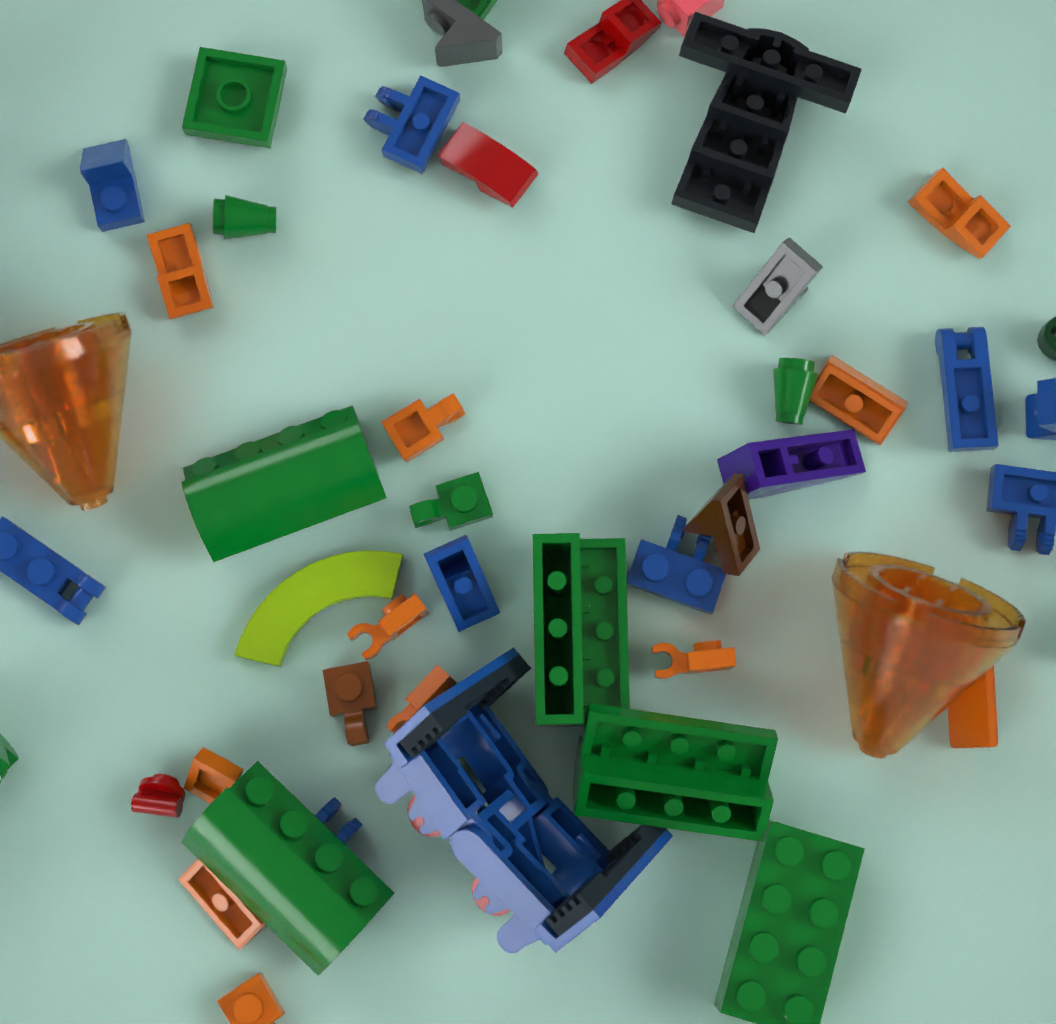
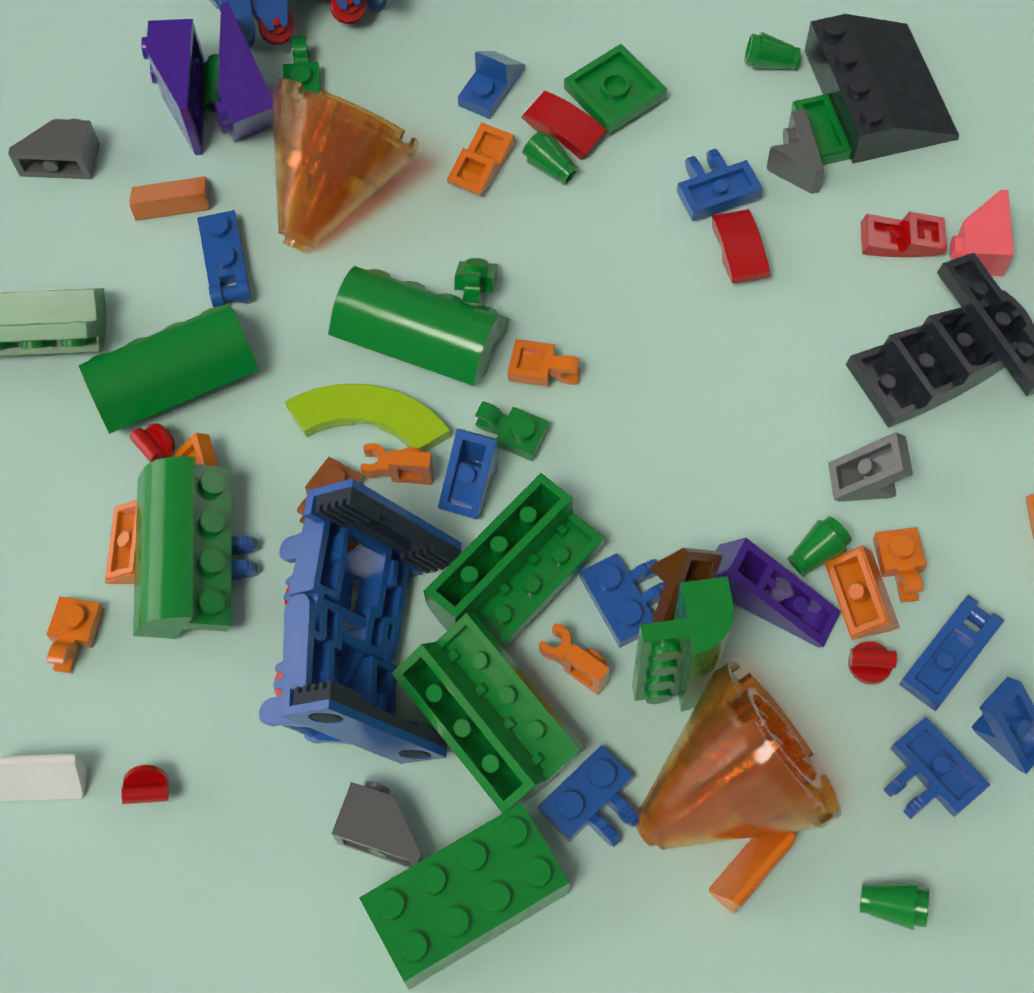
camera: 45 degrees right, 15 degrees down
(100, 719) = (168, 367): none -> green brick
(221, 170) = (565, 122): none -> red slope
(290, 395) = (474, 277): none -> green plate
(670, 938) = (375, 825): none -> dark grey slope
(798, 758) = (586, 794): none -> blue hinge
(803, 575) = (685, 651): none -> green brick
(859, 340) = (901, 556): none -> orange plate
(915, 452) = (871, 662): none -> red plate

